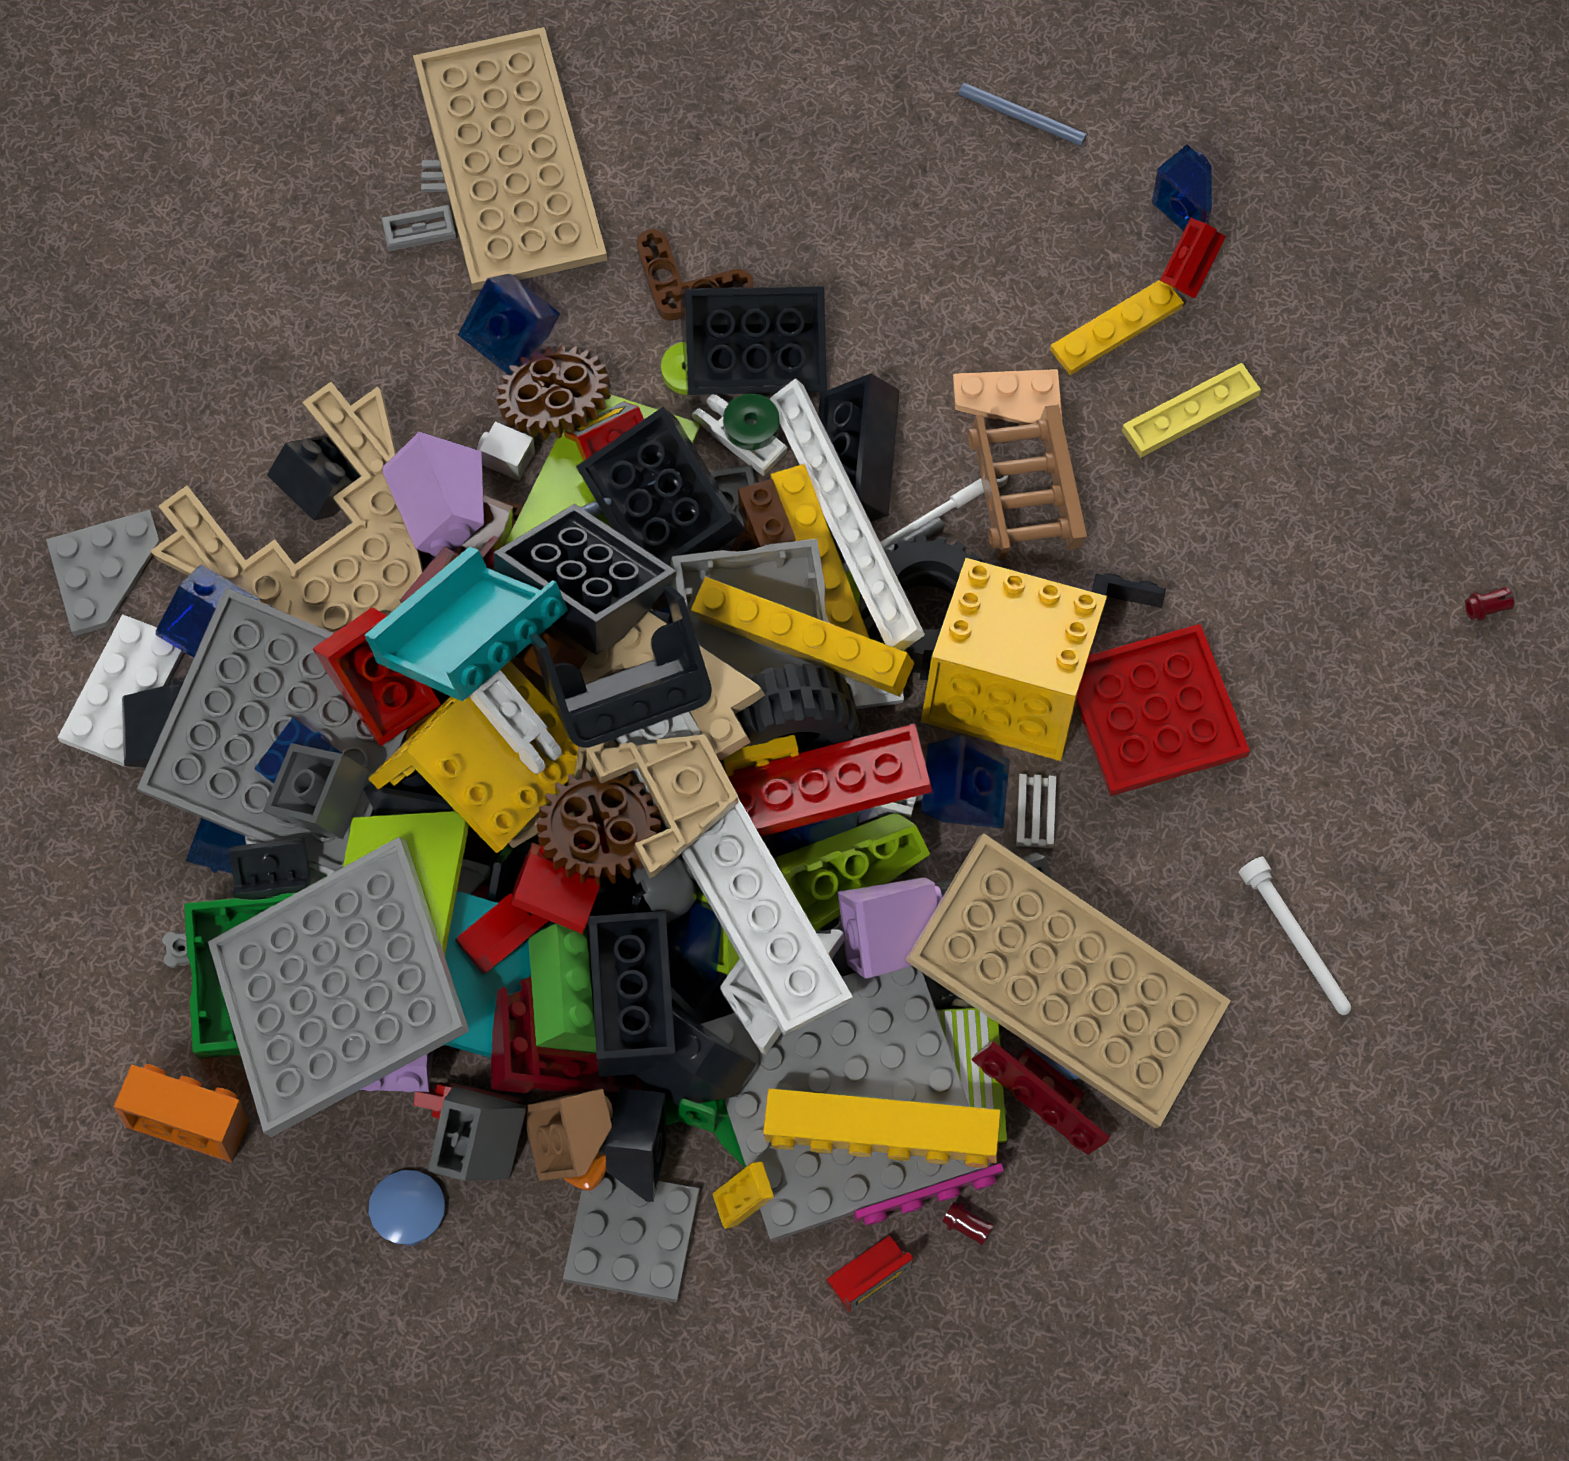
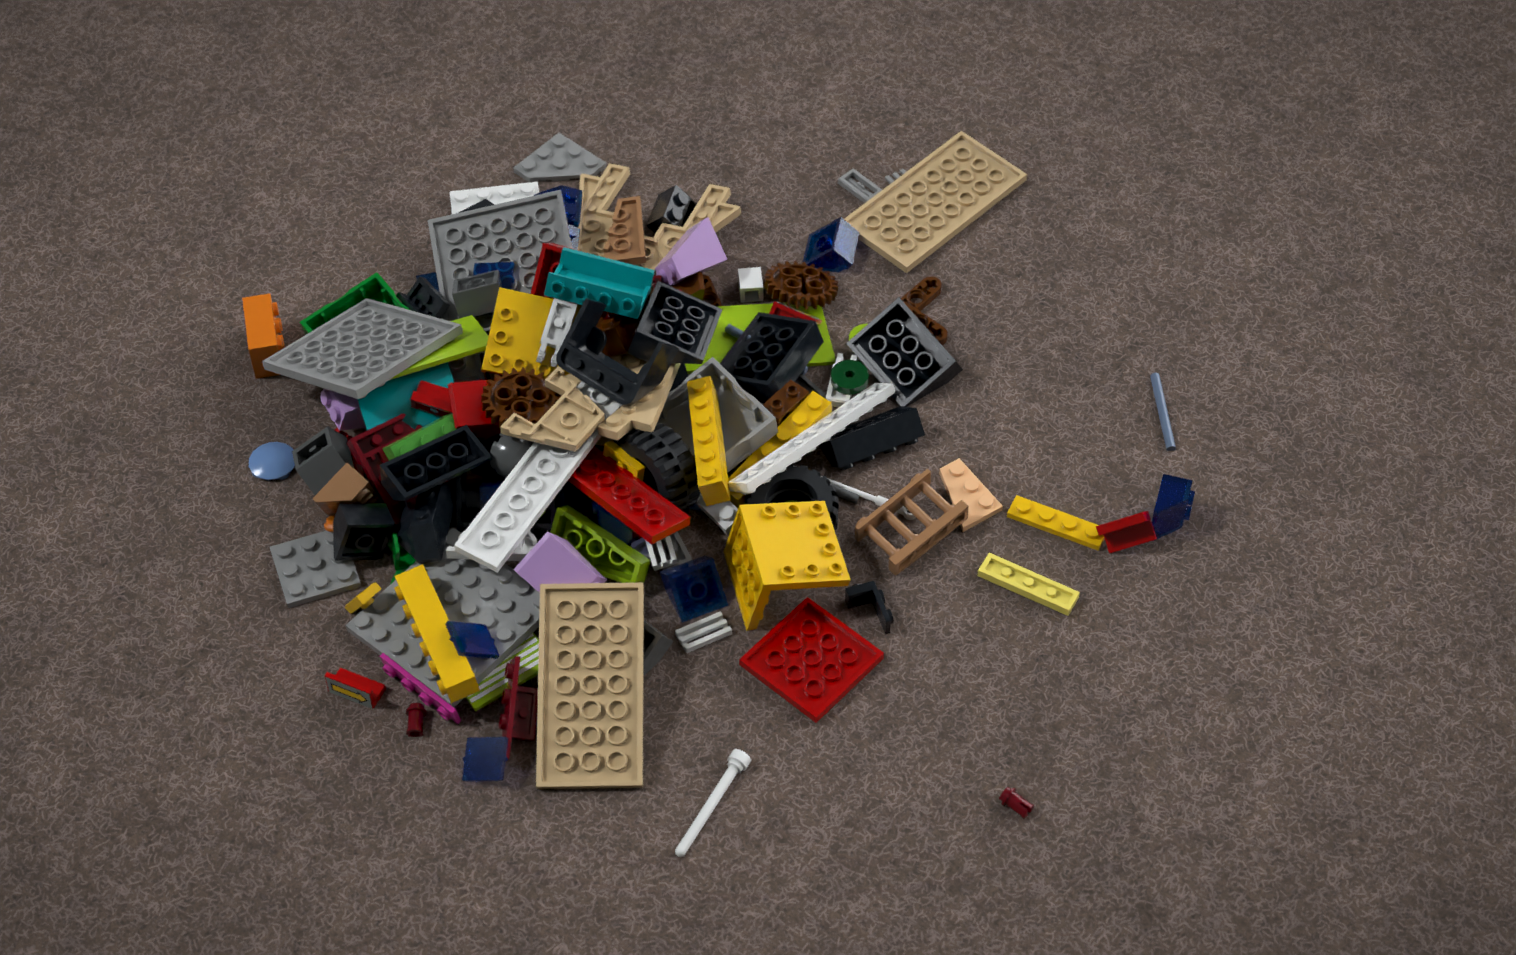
camera: 60 degrees right, 15 degrees down
(338, 555) = (627, 233): none -> medium nougat wing
(930, 1086) = (472, 639): none -> clear blue piece
(1088, 1166) = (485, 759): none -> clear blue piece

